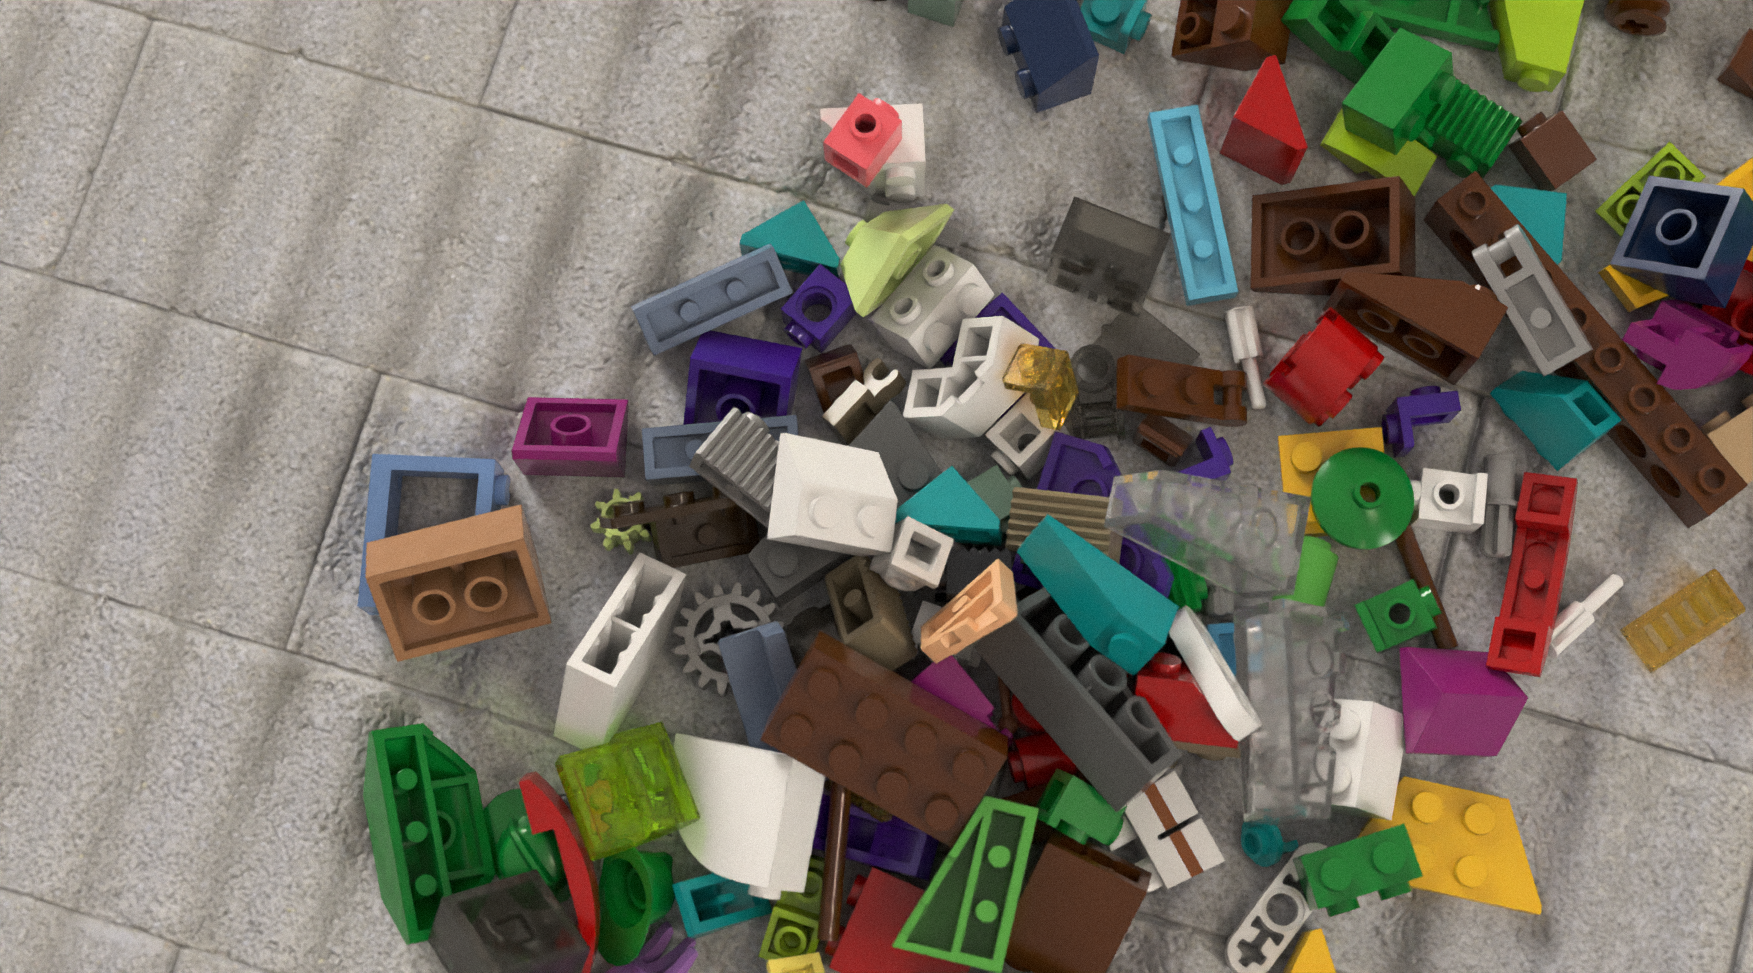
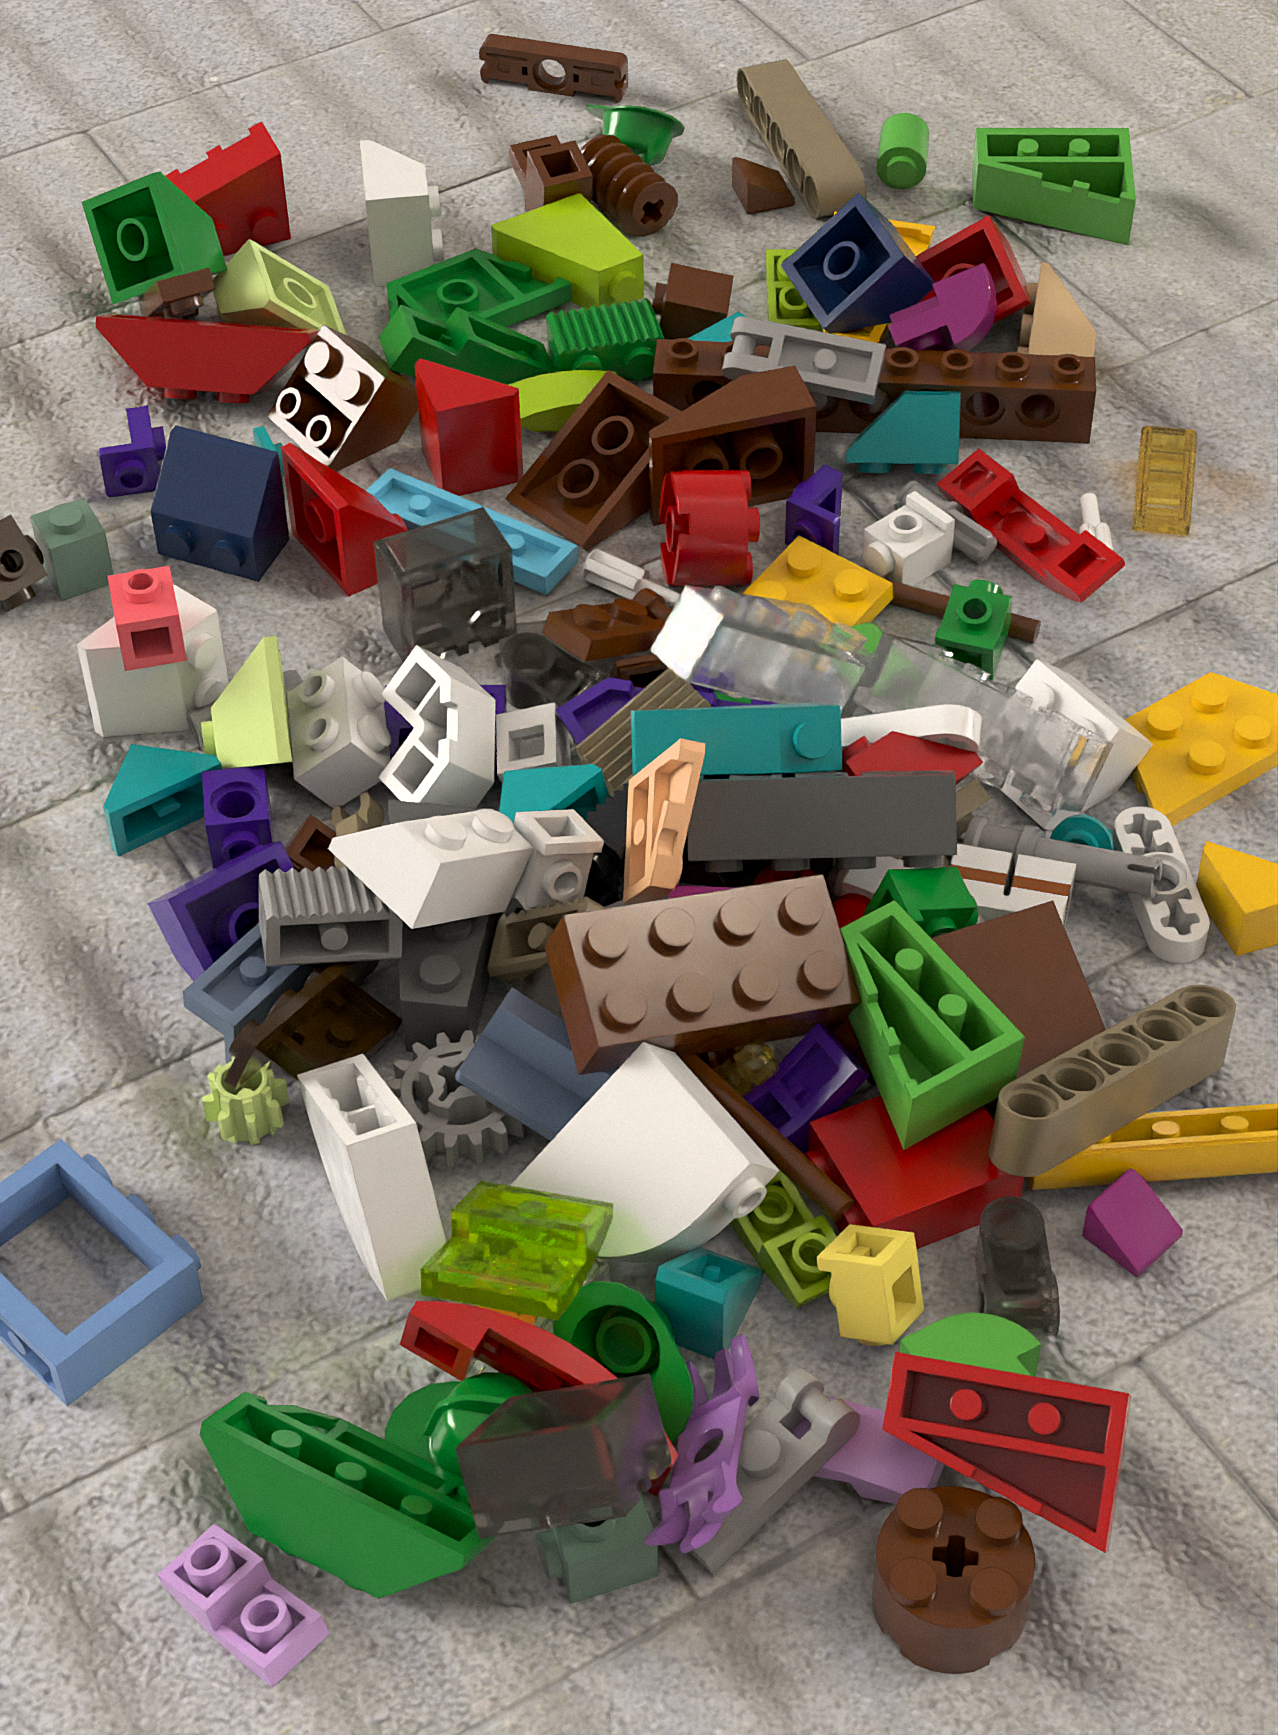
camera: 50 degrees left, 30 degrees down
(330, 825) = (242, 1606): none -> lavender slope
(457, 583) = (146, 1238): medium nougat slope -> none
(572, 437) = (123, 1088): magenta slope -> none
(712, 299) = (130, 868): sand blue panel -> none
(1048, 379) = (502, 661): clear yellow bracket -> none
(1115, 134) = (335, 520): none -> red slope
(1223, 817) = (1093, 864): none -> light grey pin
(1346, 514) = (847, 576): green dish -> none
(1356, 868) = (1176, 777): green brick -> none
(1399, 91) = (540, 333): green brick -> none
(1456, 702) = (1095, 639): magenta slope -> none

